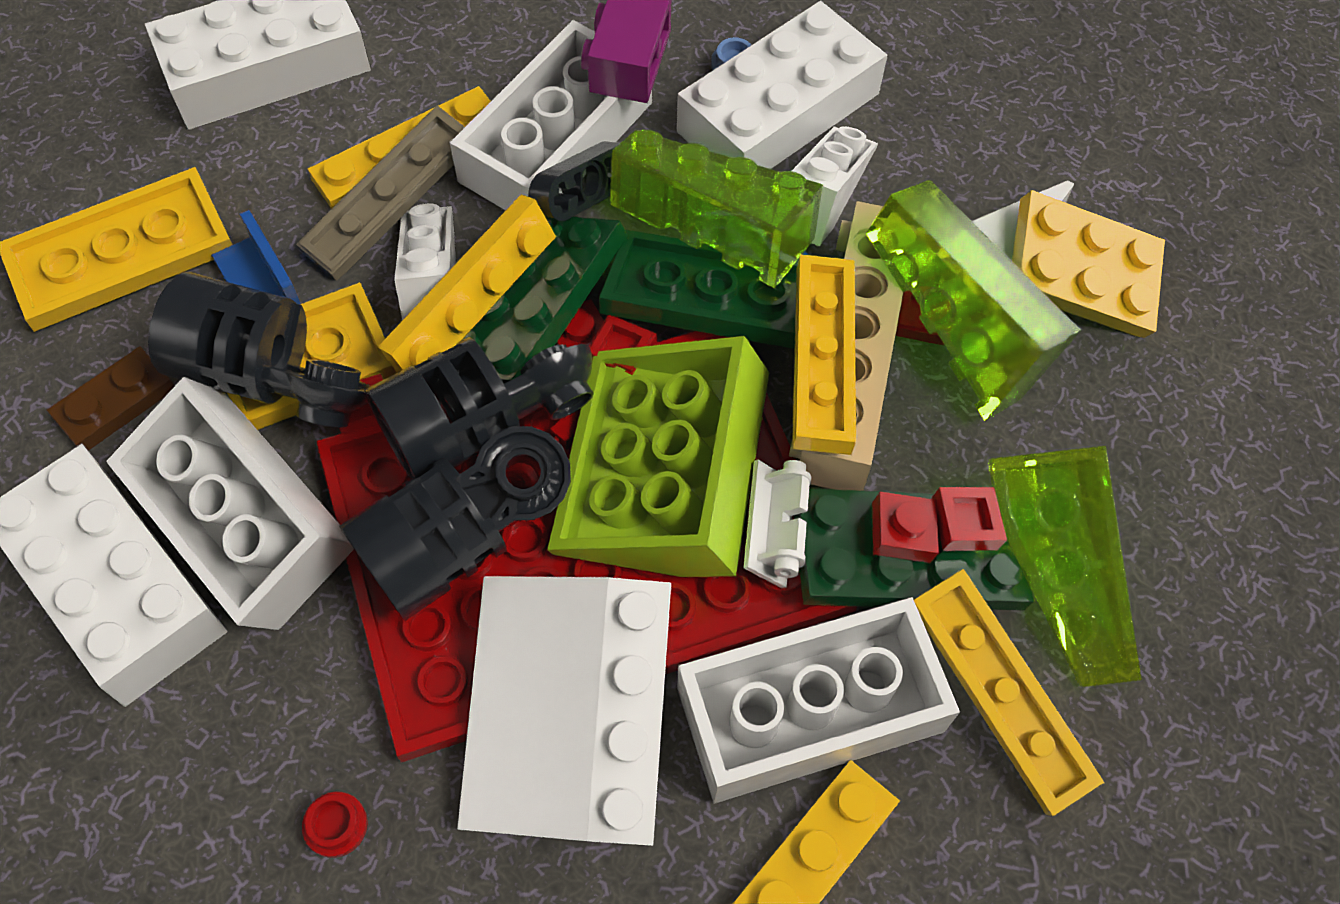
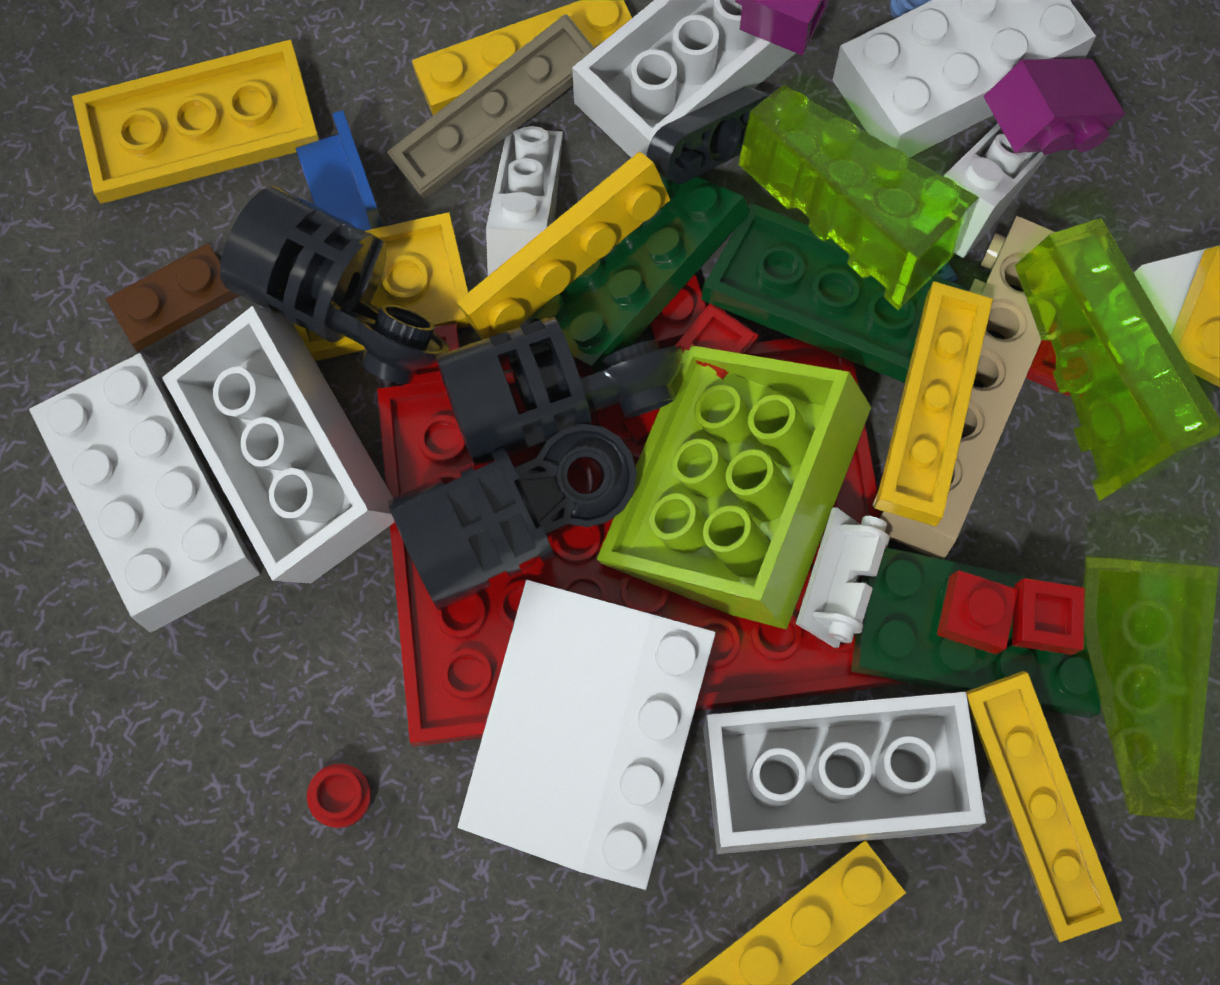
camera: 15 degrees right, 10 degrees up
(866, 113) = (1054, 105): none -> magenta brick

